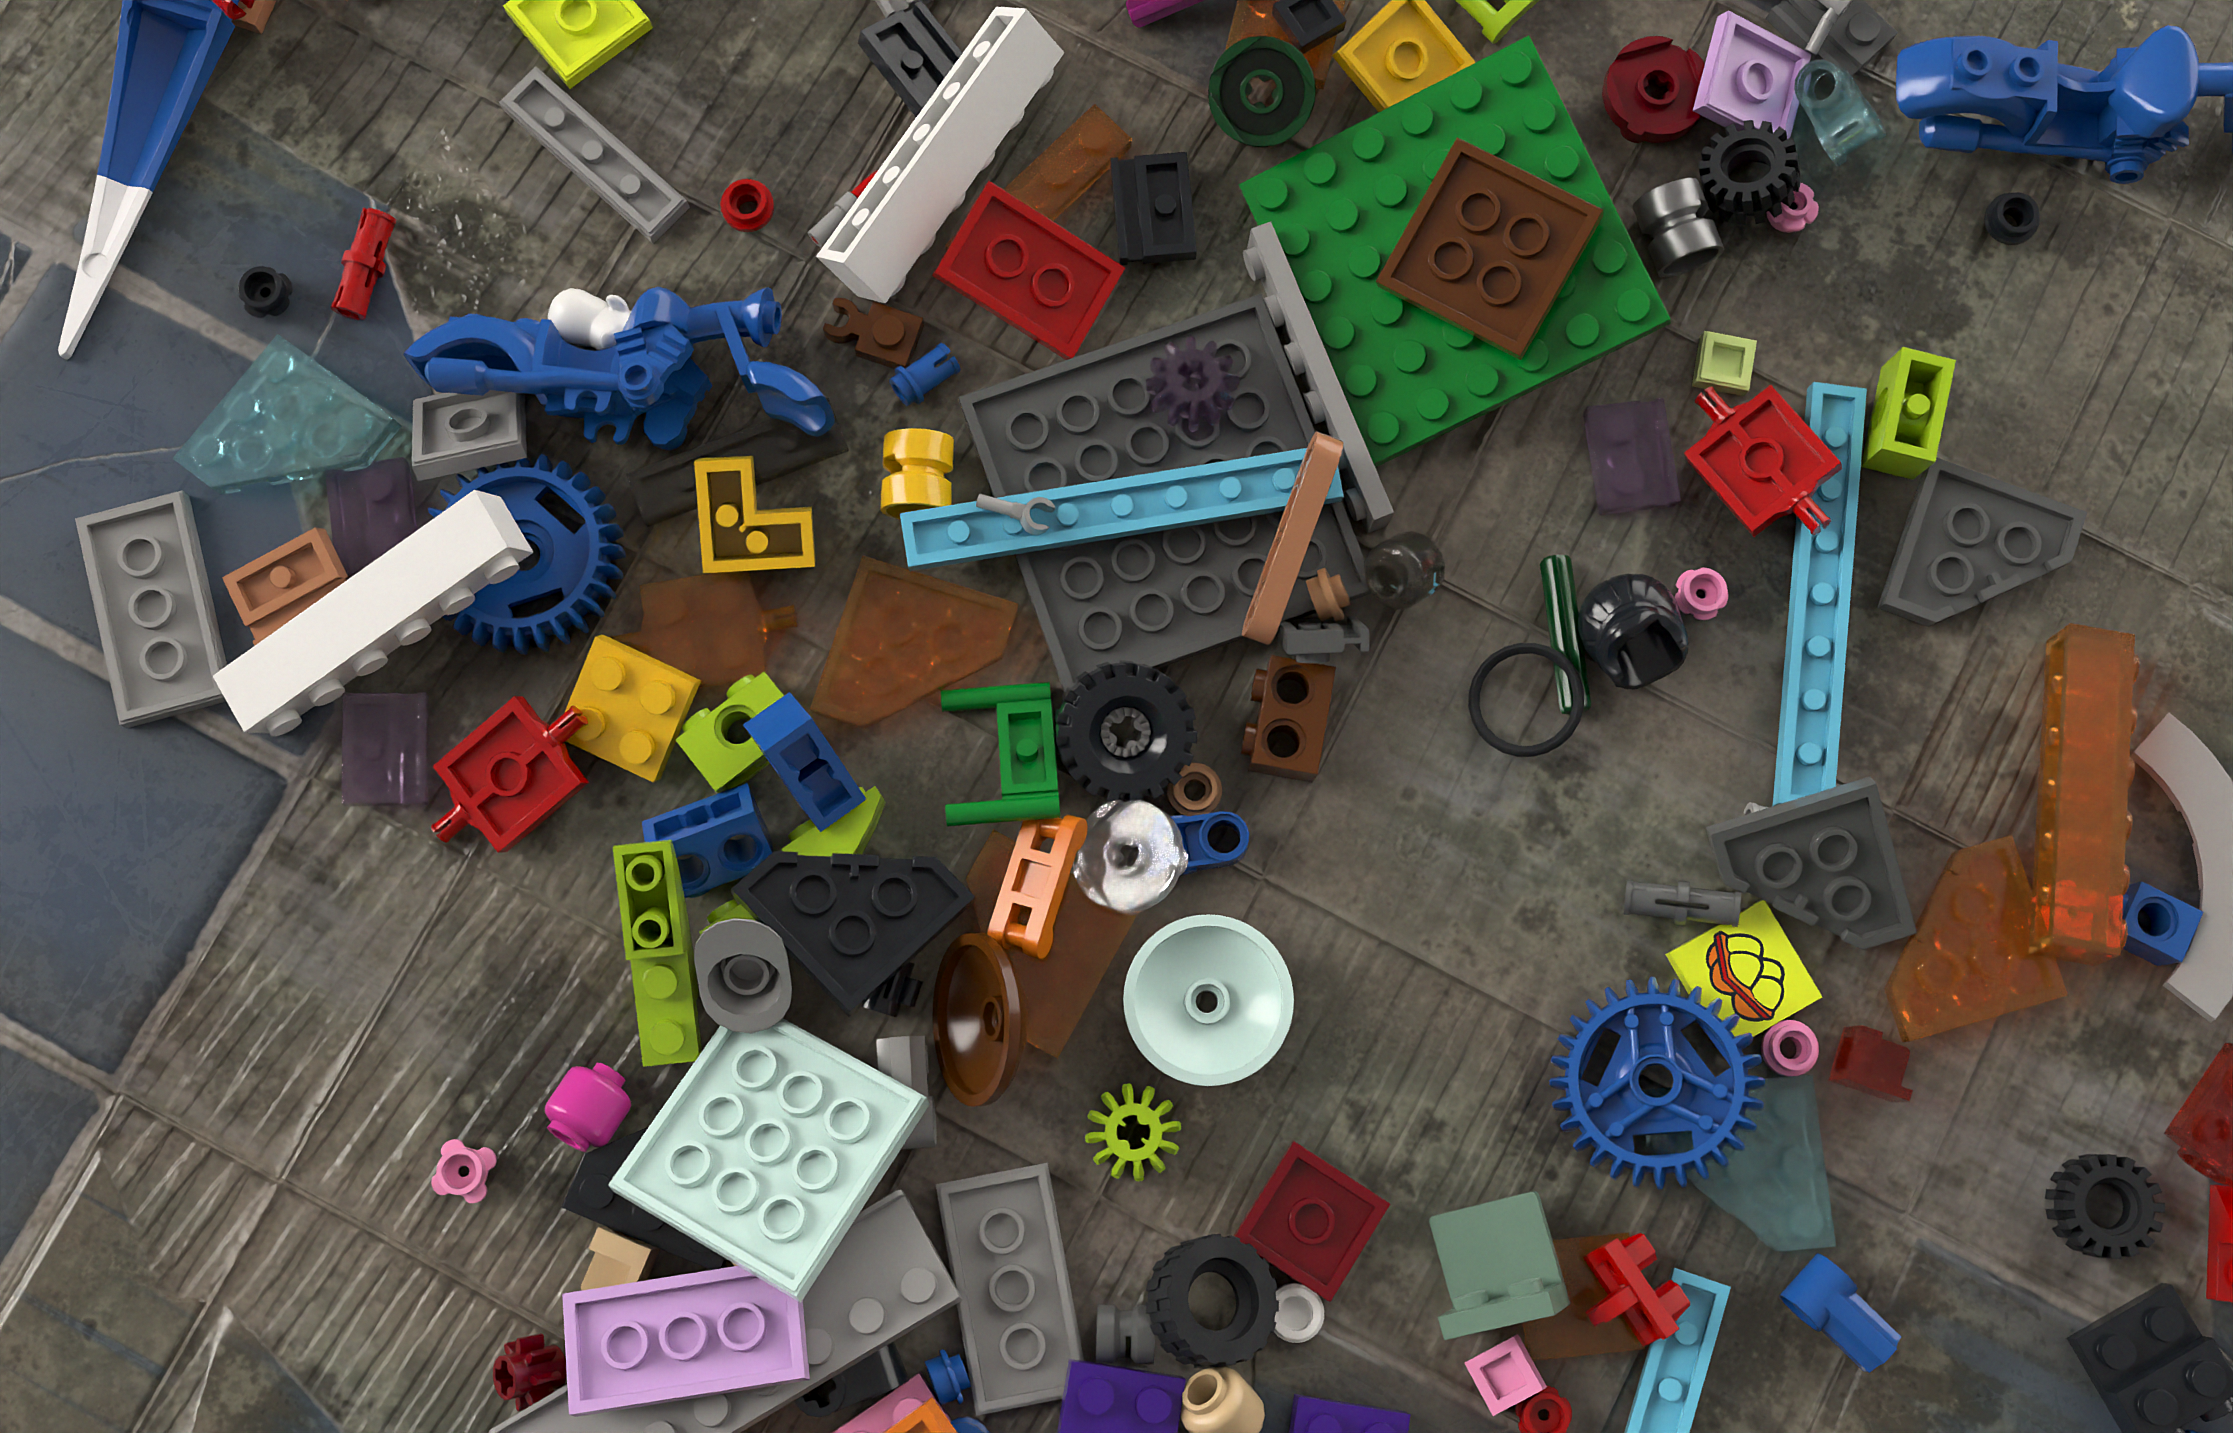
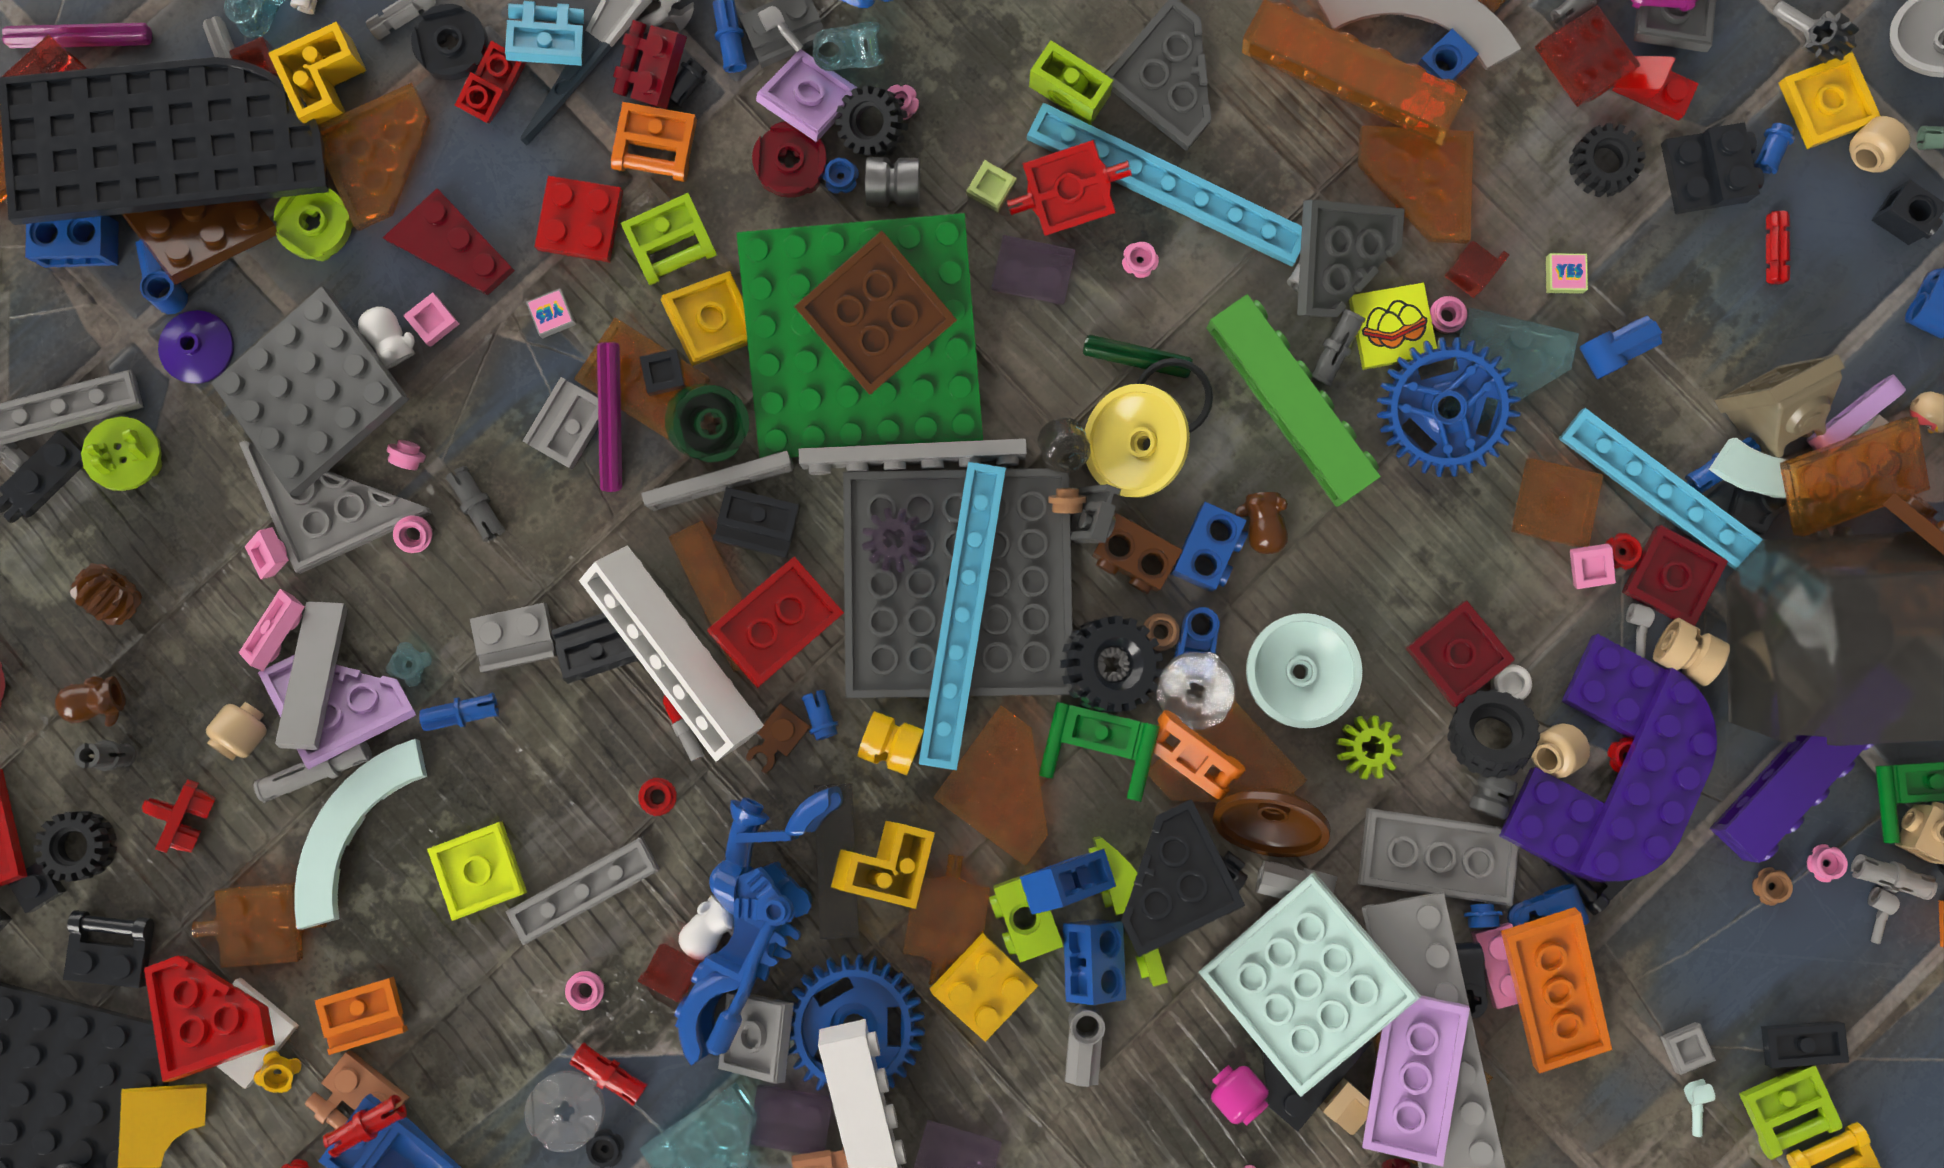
camera: 65 degrees left, 5 degrees up
(273, 213) = (549, 1127): none -> clear plate
(455, 187) = (573, 993): none -> bright pink plate
(510, 774) = (1003, 1079): red plate -> none
(518, 292) = (669, 972): none -> clear red panel
(576, 872) = (1084, 1048): none -> light grey piece
(659, 951) = (1158, 1017): lime slope -> none
(743, 975) = (1195, 966): light grey piece -> none
(1018, 511) = (944, 686): light grey hand -> none
(1190, 137) = (718, 481): none -> light grey tile
(1292, 538) = (1024, 511): nougat beam -> none
(1334, 801) = (1201, 543): none -> blue brick
(1394, 886) = (1267, 525): none -> reddish brown animal
(1444, 643) = (1117, 437): none -> light yellow dish
(1498, 1265) = (1529, 547): sand green bracket -> none
(1583, 866) = (1293, 400): none -> bright green brick
(1633, 630) = (1152, 313): black hair -> none
(1646, 1310) = (1573, 473): red hips -> none
(1663, 149) = (838, 166): none -> blue plate
(1916, 1202) = (1566, 273): none -> tile

